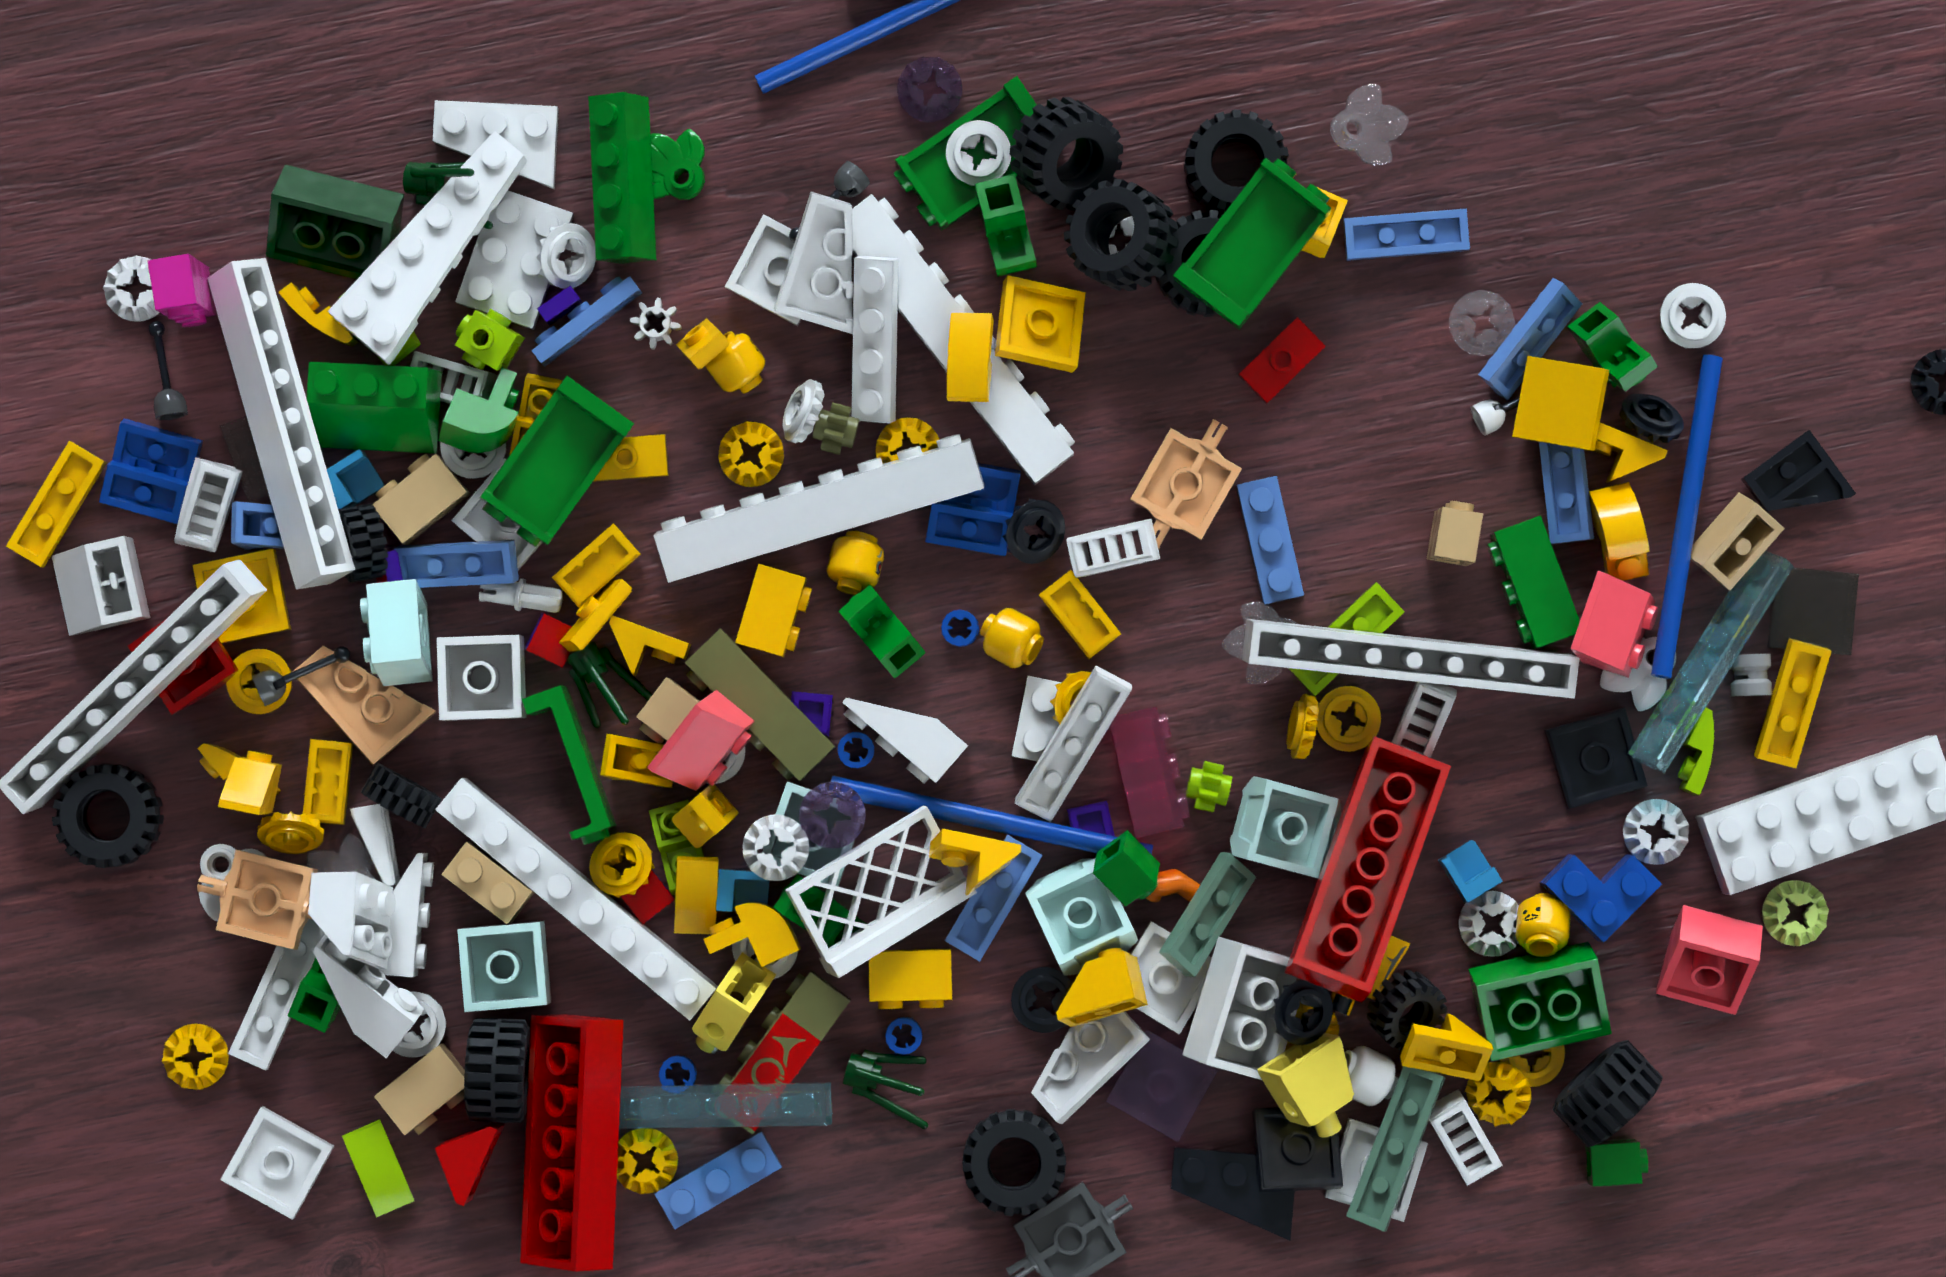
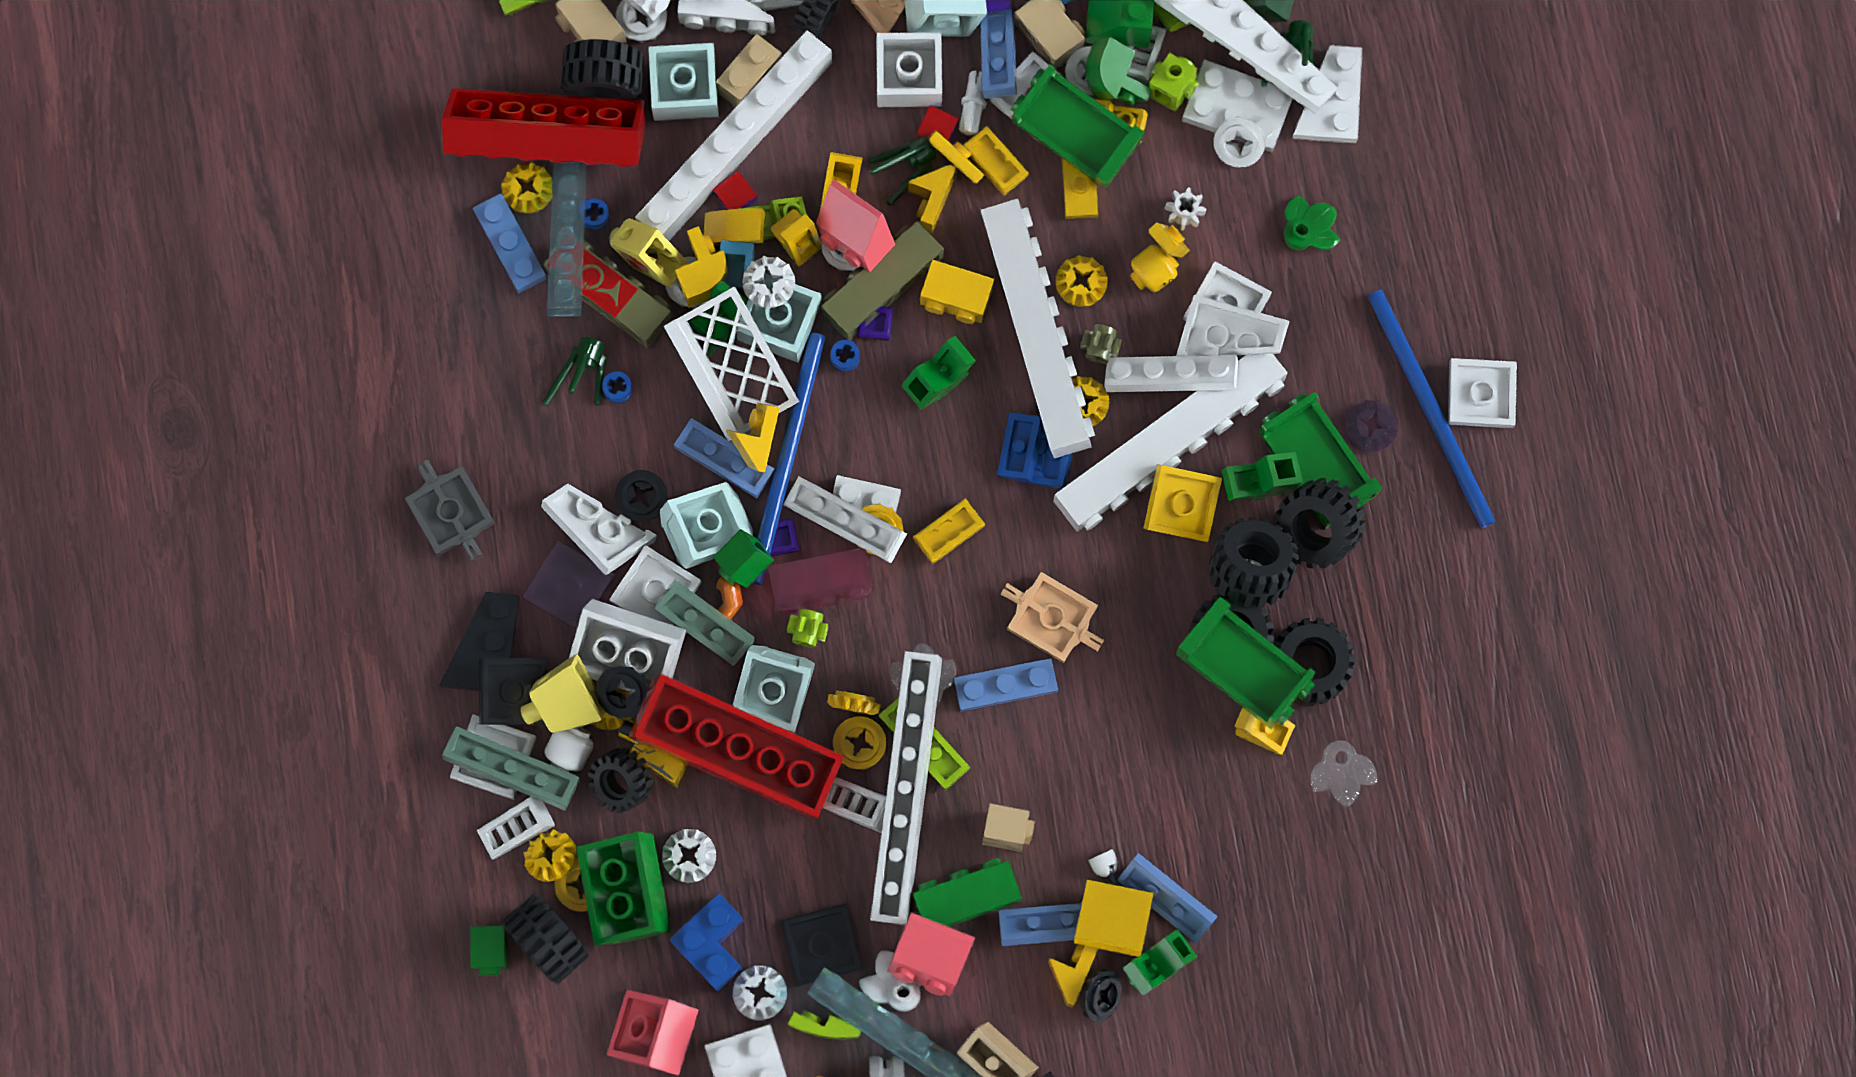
camera: 90 degrees right, 10 degrees down
(466, 1159) = (531, 49): red slope -> none
(559, 305) = (1200, 137): dark purple tile -> none
(561, 703) = (843, 139): green panel -> none
(585, 319) = (1189, 156): medium blue plate -> none
(611, 852) = (770, 168): yellow gear -> none
(622, 178) = (1300, 184): green brick -> none
(666, 710) = (885, 200): tan brick -> none
(802, 411) = (1114, 317): white gear -> none
(848, 182) = (1296, 358): dark grey hinge -> none
(848, 803) = (802, 337): clear purple gear -> none
(855, 562) = (994, 356): yellow head -> none
(910, 976) = (663, 391): yellow brick -> none
(918, 737) = (852, 402): white slope -> none
(959, 640) = (950, 439): blue bush -> none
(967, 137) = (1333, 453): white gear -> none
(969, 357) = (1154, 440): yellow slope -> none
(1011, 638) = (931, 476): yellow head -> none
(1014, 1198) = (505, 441): black tyre -> none
(1035, 547) = (1004, 501): black gear -> none
(1080, 556) = (997, 536): white slope -> none
(1103, 989) = (647, 537): yellow slope -> none
(1281, 360) = (1151, 698): red plate -> none
(1406, 234) = (1253, 800): medium blue plate -> none
(1448, 1051) = (585, 812): yellow slope -> none
(1463, 327) = (1196, 856): clear gear -> none
(1469, 871) = (732, 837): dark azure panel -> none
(1542, 925) = (685, 893): yellow head -> none
(1621, 531) = (1006, 966): yellow brick -> none
(1686, 517) = (1019, 1022): blue piece -> none
(1712, 315) = (1201, 1034): white gear -> none

